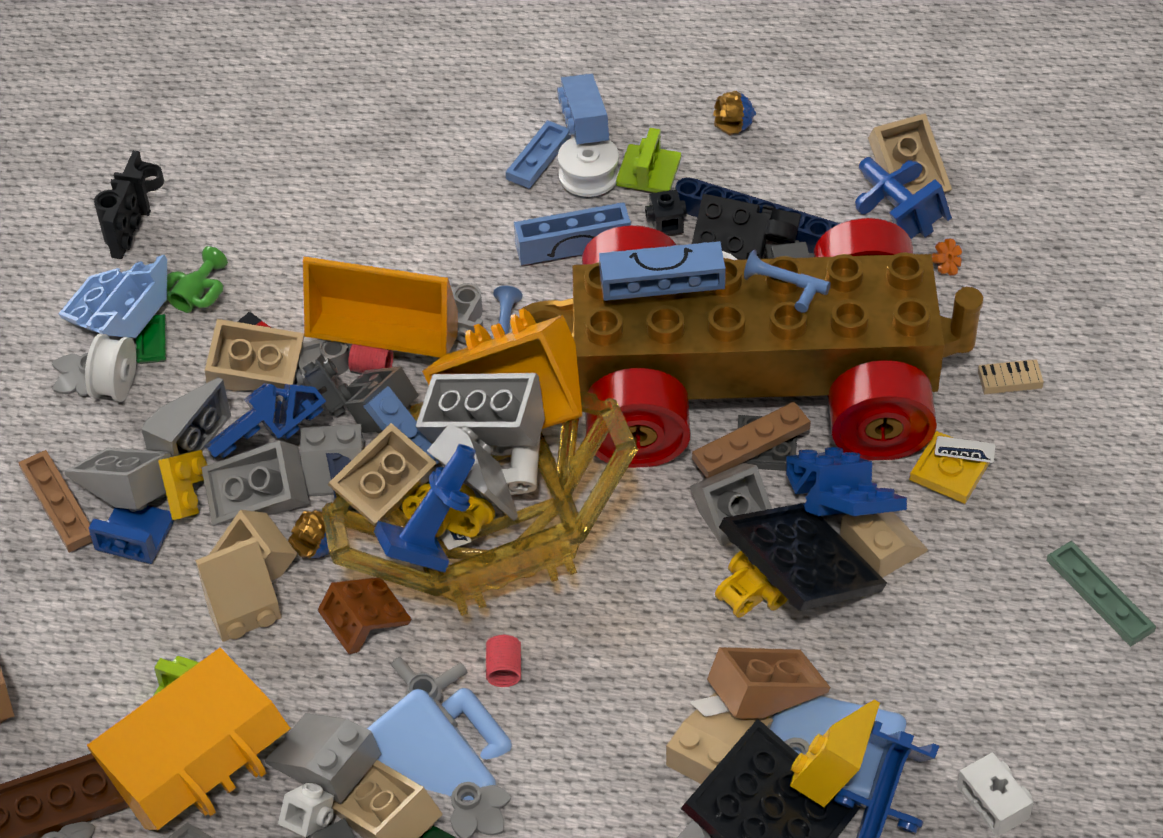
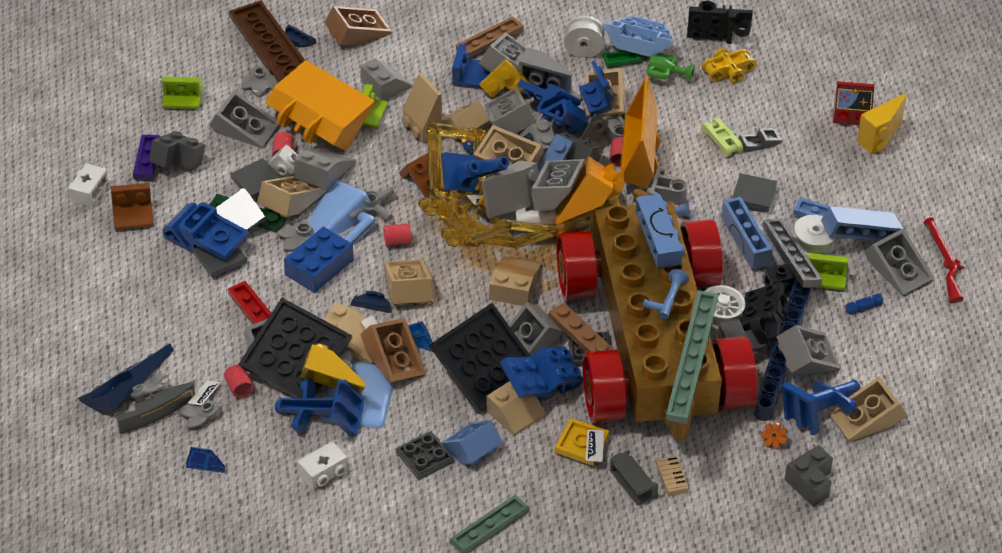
camera: 80 degrees right, 5 degrees down
(122, 657) = (384, 78): none -> light grey slope
(208, 213) = (729, 65): none -> yellow axle
(258, 816) = (281, 140): none -> coral piece
(266, 351) = (596, 93): none -> blue bracket
(338, 87) = (852, 101): none -> slope
(358, 240) = (722, 137): none -> yellowish green plate
(371, 202) = (763, 139): none -> dark grey slope
(389, 61) = (880, 124): none -> yellow slope
(482, 220) = (755, 191): none -> dark grey tile
(547, 774) = (318, 259): none -> blue brick
(607, 653) = (408, 282): none -> tan slope
(627, 186) = (792, 253): none -> flat silver plate
(630, 517) = (514, 281): none -> tan slope
(638, 710) = (372, 300): none -> dark blue tile
(642, 92) = (899, 262): none -> light grey slope
(699, 53) = (954, 265): none -> red piece
(707, 649) = (420, 335): none -> clear blue tile
(710, 139) = (864, 303): none -> blue axle
(733, 112) = (888, 309): pearl gold piece -> none
(820, 195) = (807, 351): none -> light grey slope
(913, 264) = (692, 357): none -> sand green plate
(949, 597) = (473, 442): none -> medium blue slope
(966, 663) = (424, 455): none -> dark grey tile
(1019, 233) = (809, 473): none -> dark grey brick
(1020, 416) = (632, 478): none -> dark grey window

